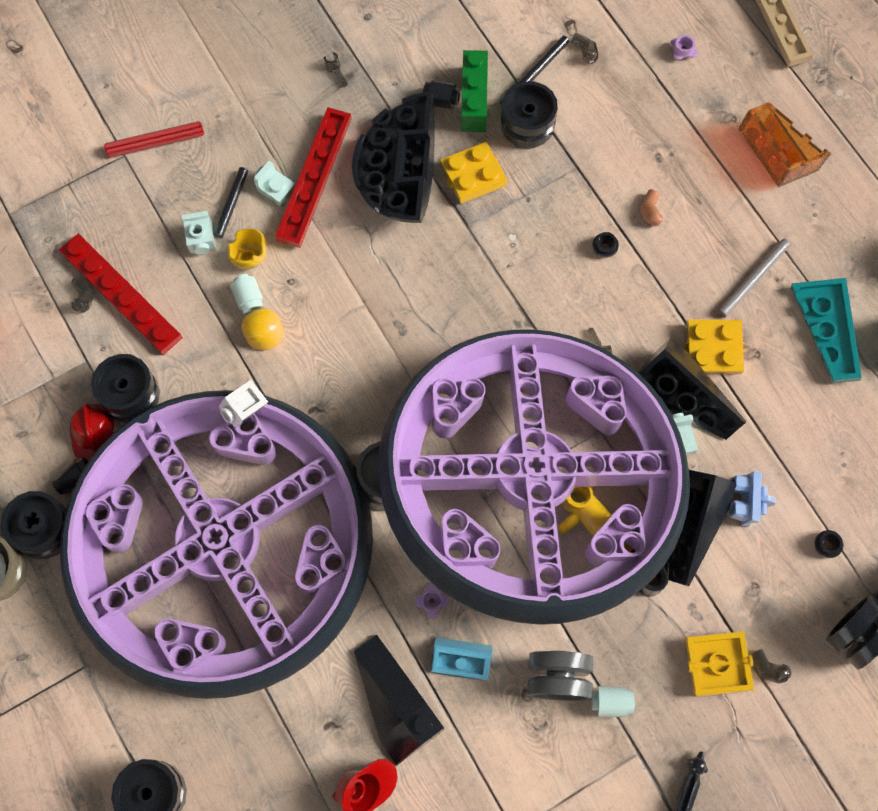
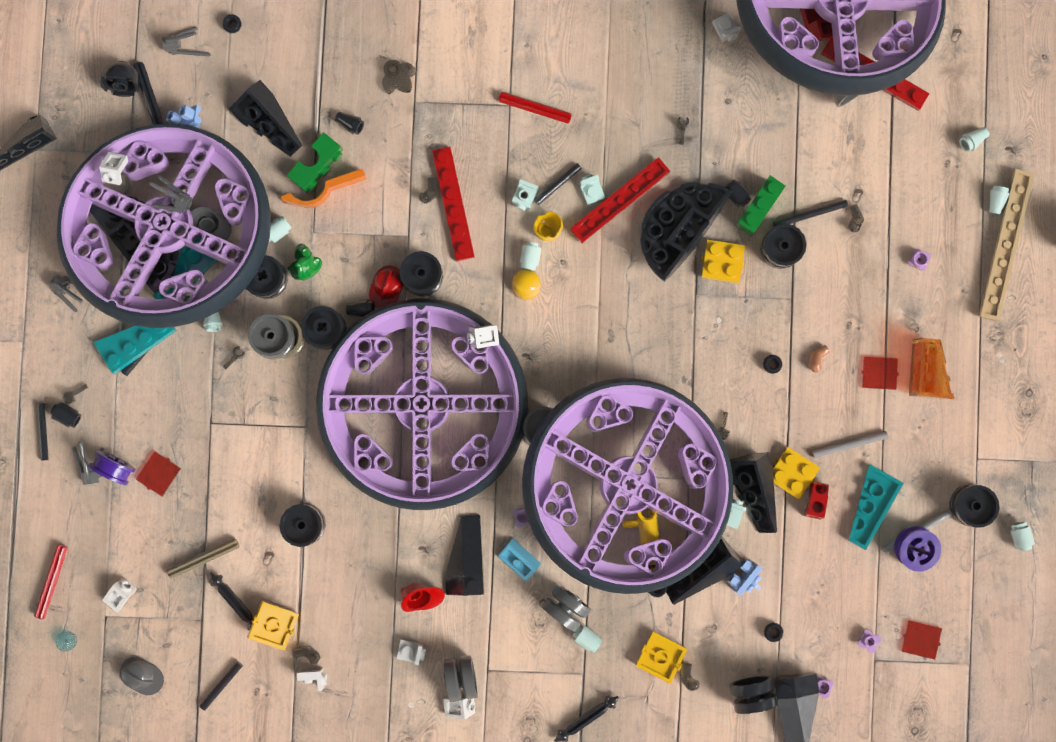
camera: 35 degrees right, 15 degrees up
(729, 185) = (880, 373): none -> clear red piece
(766, 360) = (817, 501): none -> red leg

